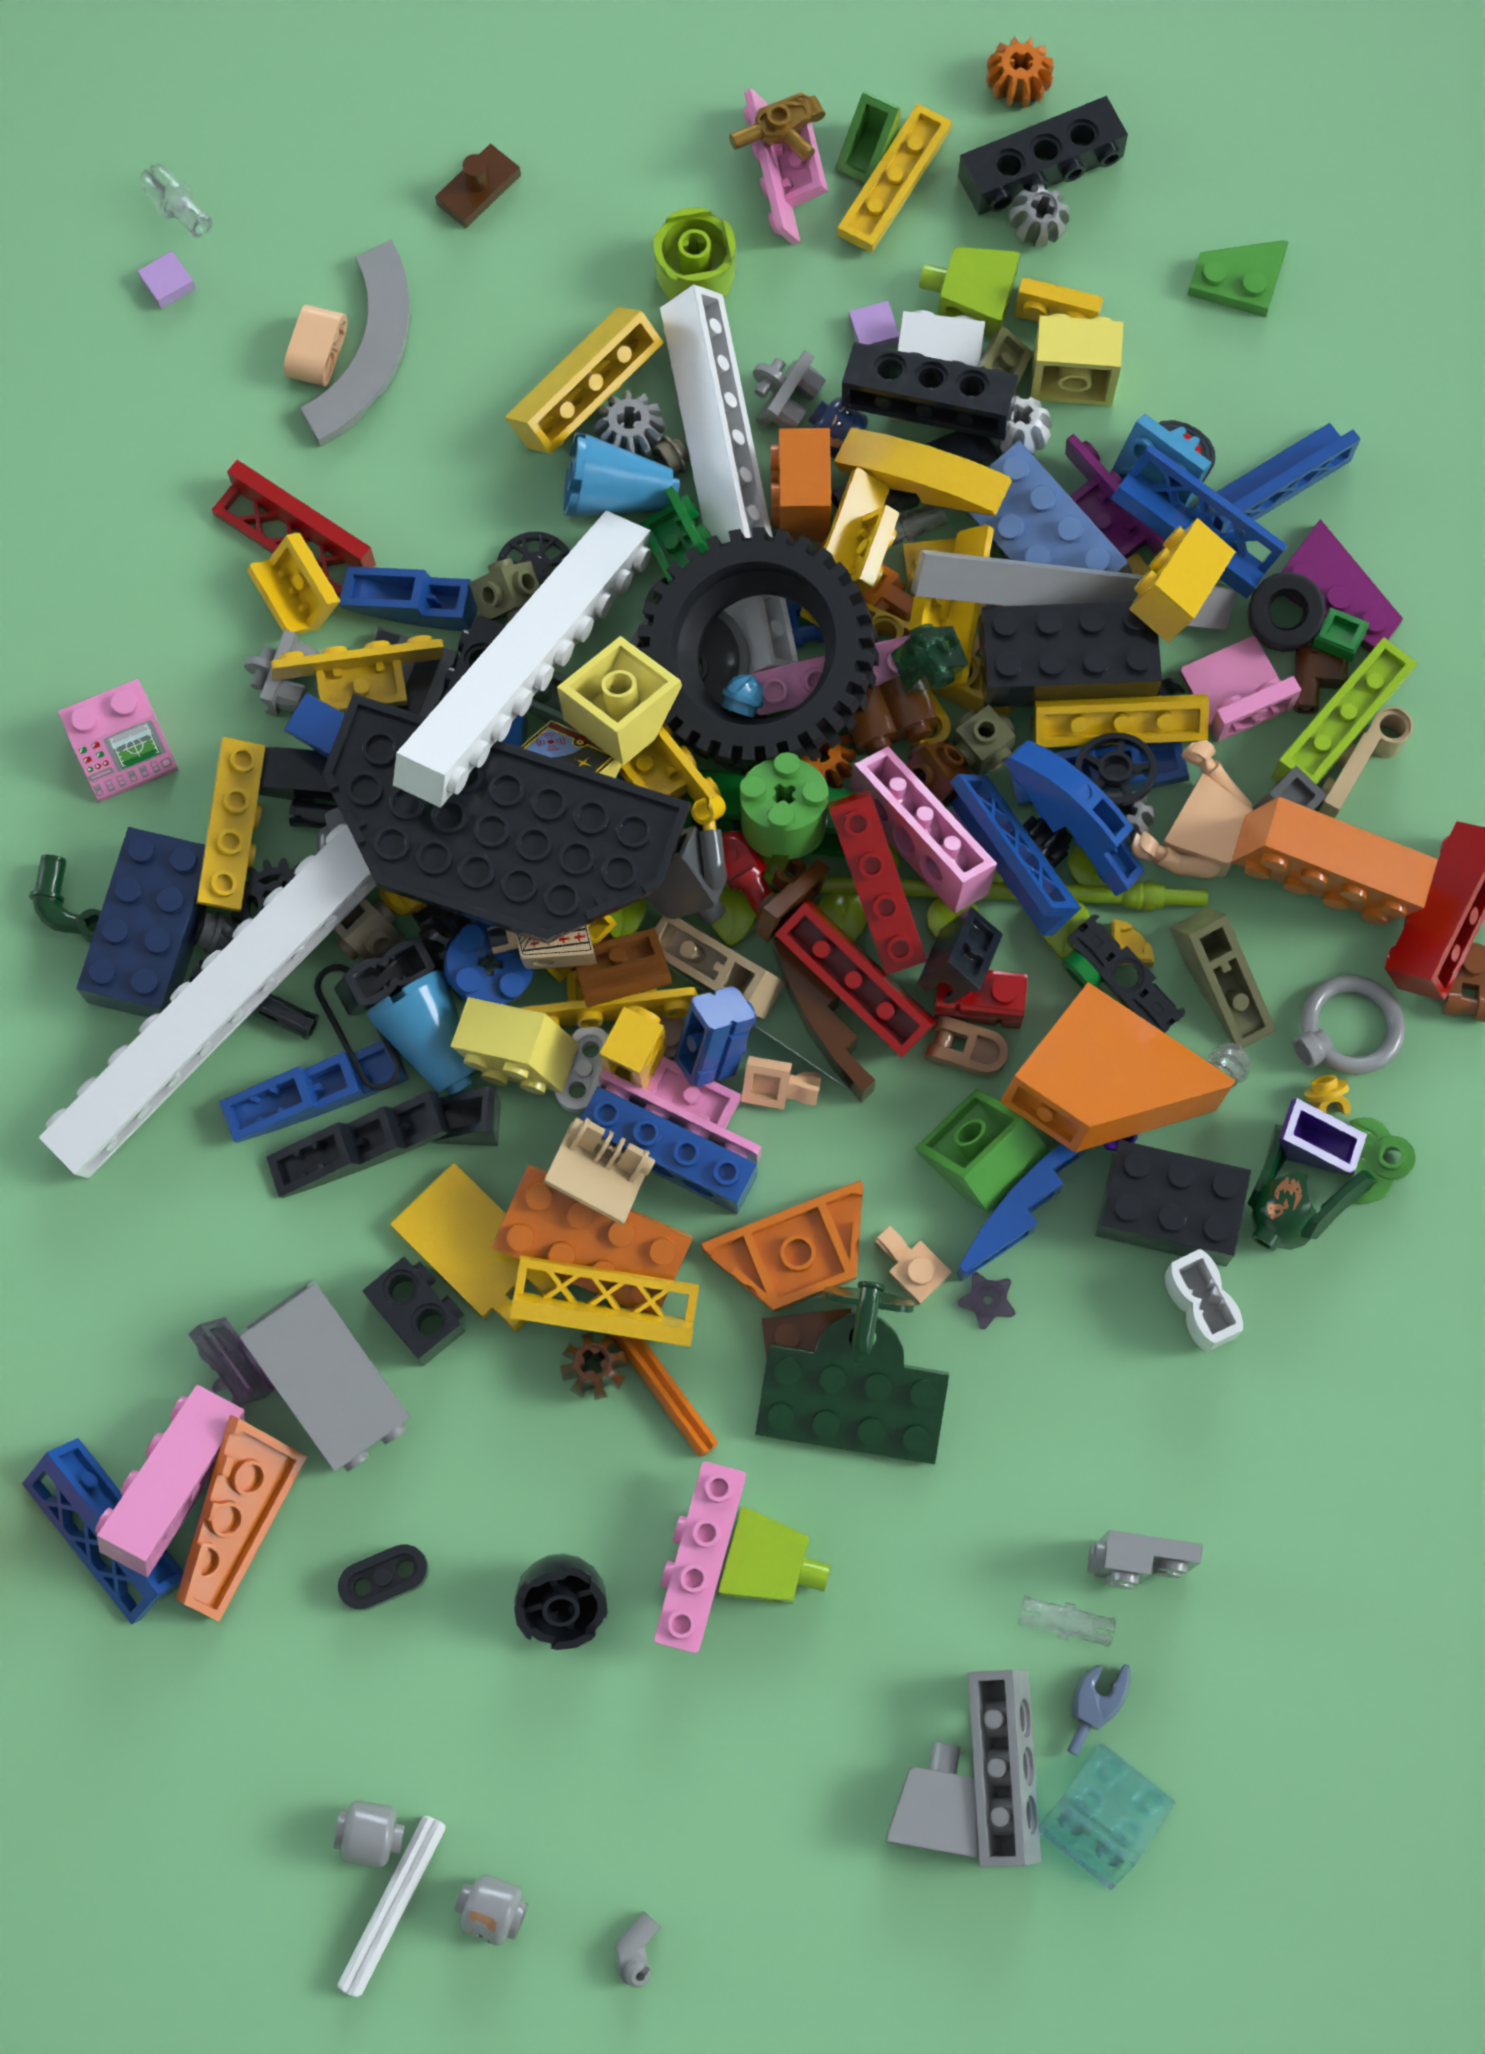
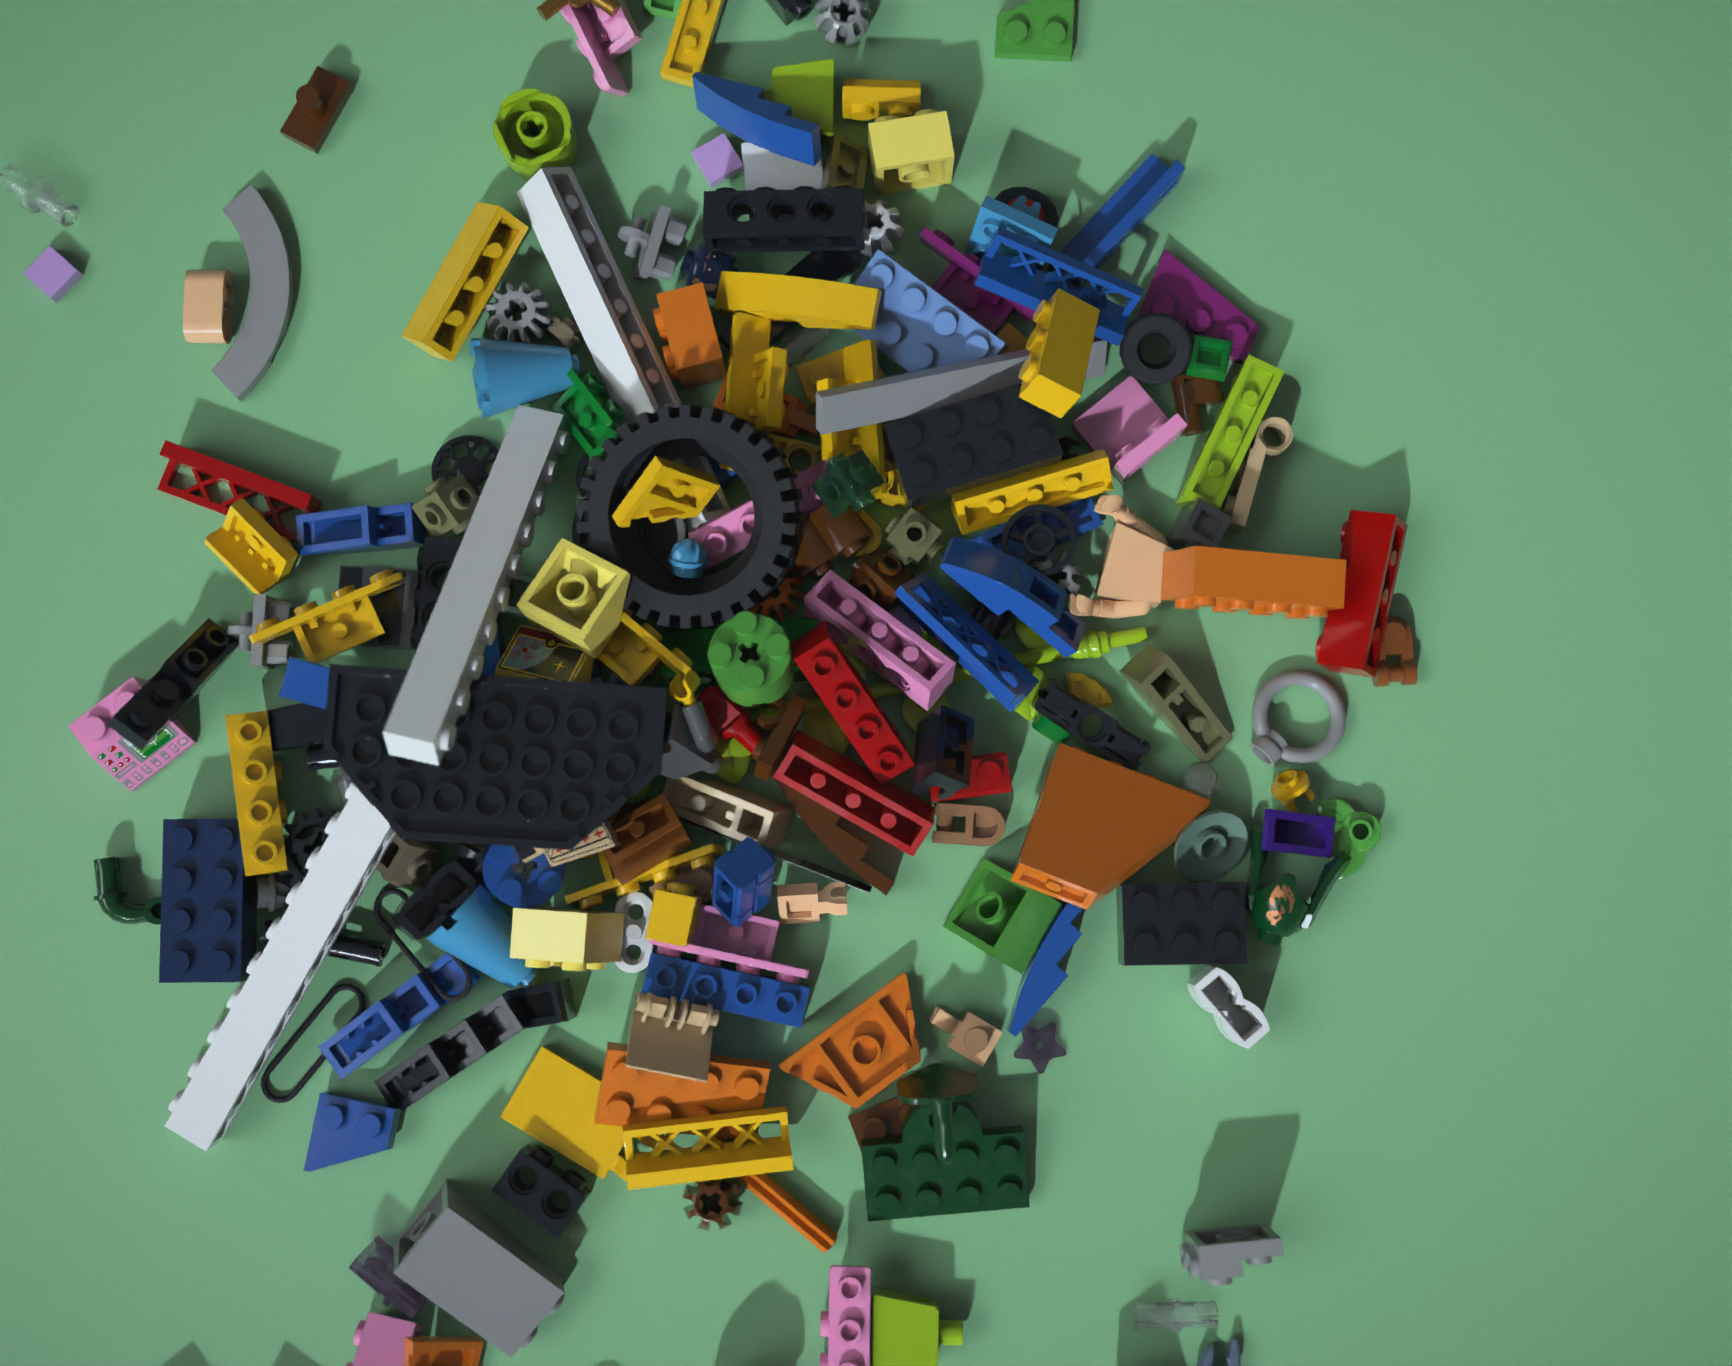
camera: 15 degrees left, 10 degrees up
(166, 1152) = (294, 1039): none -> black piece
(180, 696) = (174, 685): none -> black slope
(226, 1198) = (349, 1130): none -> blue wing
(739, 619) = (665, 493): none -> yellow wing
(925, 290) = (756, 120): none -> blue slope
(1239, 1138) = (1210, 846): none -> sand green dish

